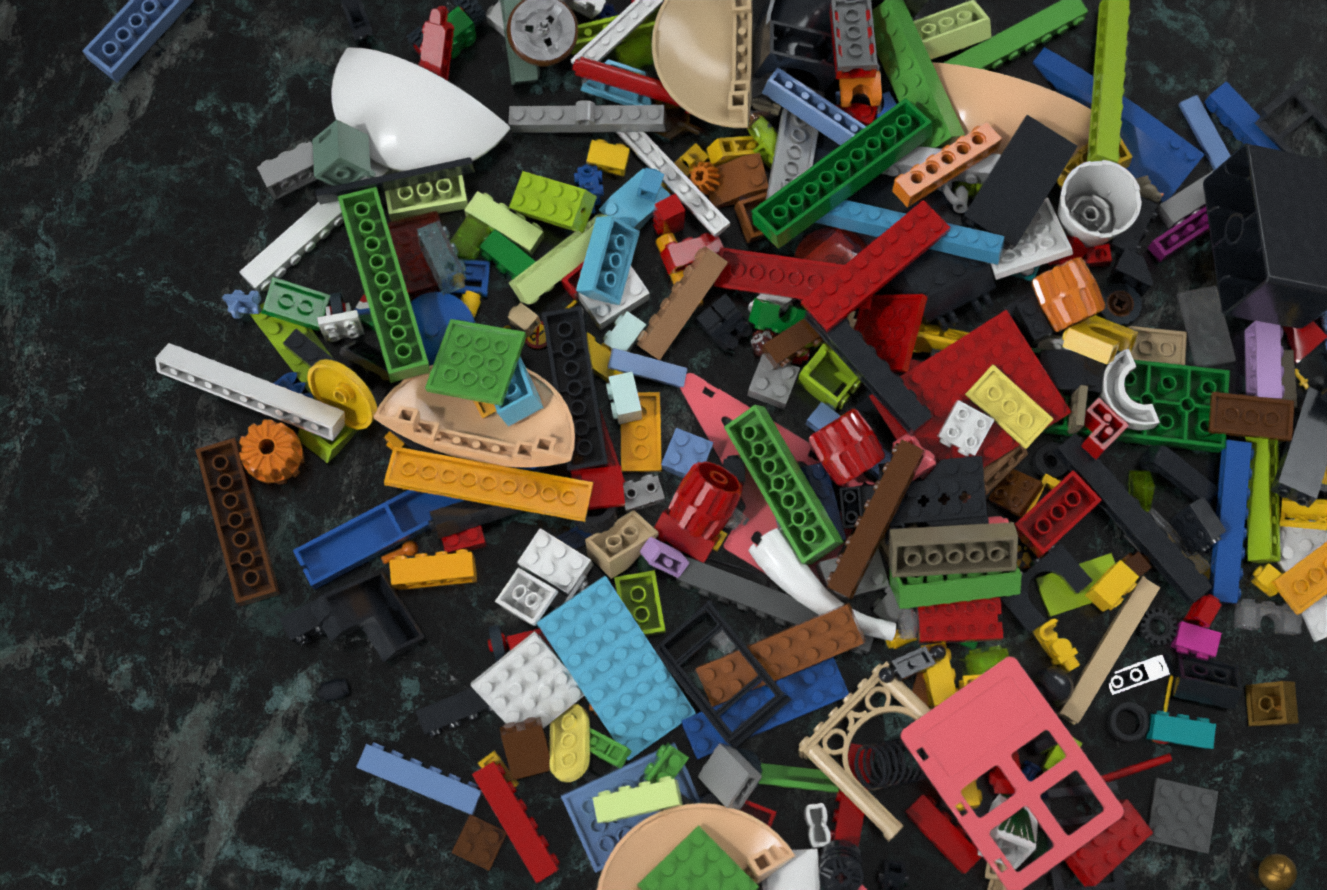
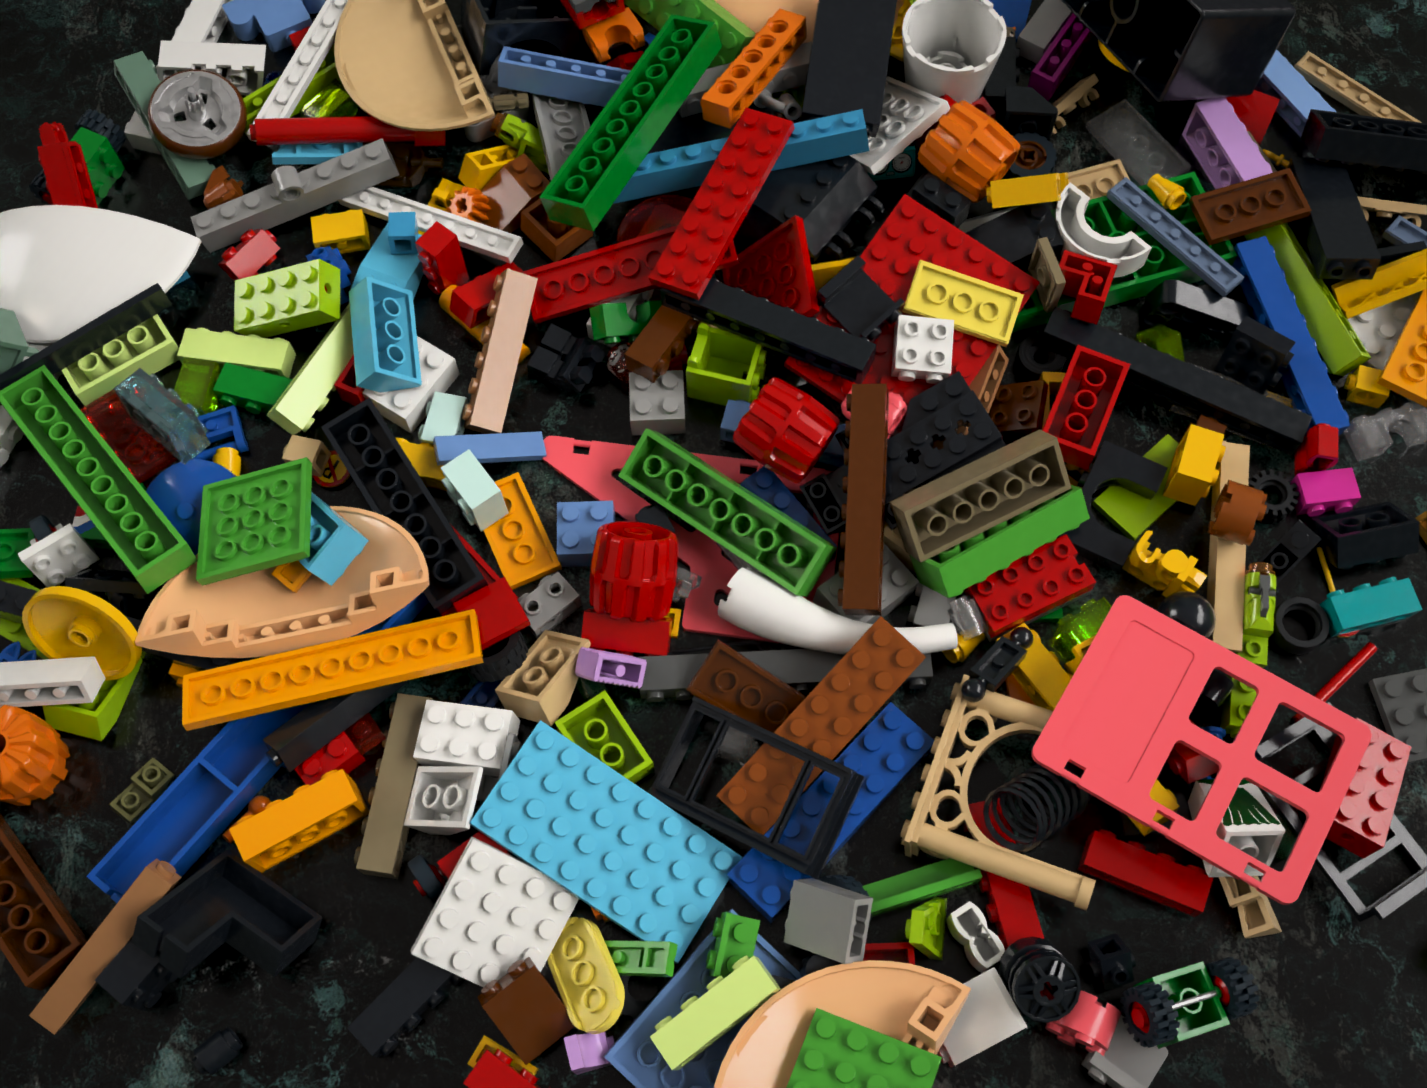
camera: 20 degrees left, 10 degrees down
(291, 599) = (103, 946): none -> medium nougat brick
(341, 506) = (145, 789): none -> olive slope
(493, 532) = (365, 734): none -> clear red plate
(497, 575) = (389, 800): none -> dark tan brick
(538, 92) = (221, 190): none -> dark orange brick
(539, 150) = (250, 255): none -> brick
(553, 788) = (587, 1051): none -> lavender arch
(743, 608) = (744, 688): none -> reddish brown tile
(790, 806) = (927, 927): none -> lime wing
(937, 378) = (858, 302): none -> black panel
(1102, 703) = (1258, 612): none -> lime plate
(1121, 633) = (1237, 512): none -> dark orange brick
(1173, 269) = (1079, 93): none -> tan plate
(1187, 415) = (1175, 237): none -> sand blue tile
(1199, 382) = (1168, 193): none -> yellow cone

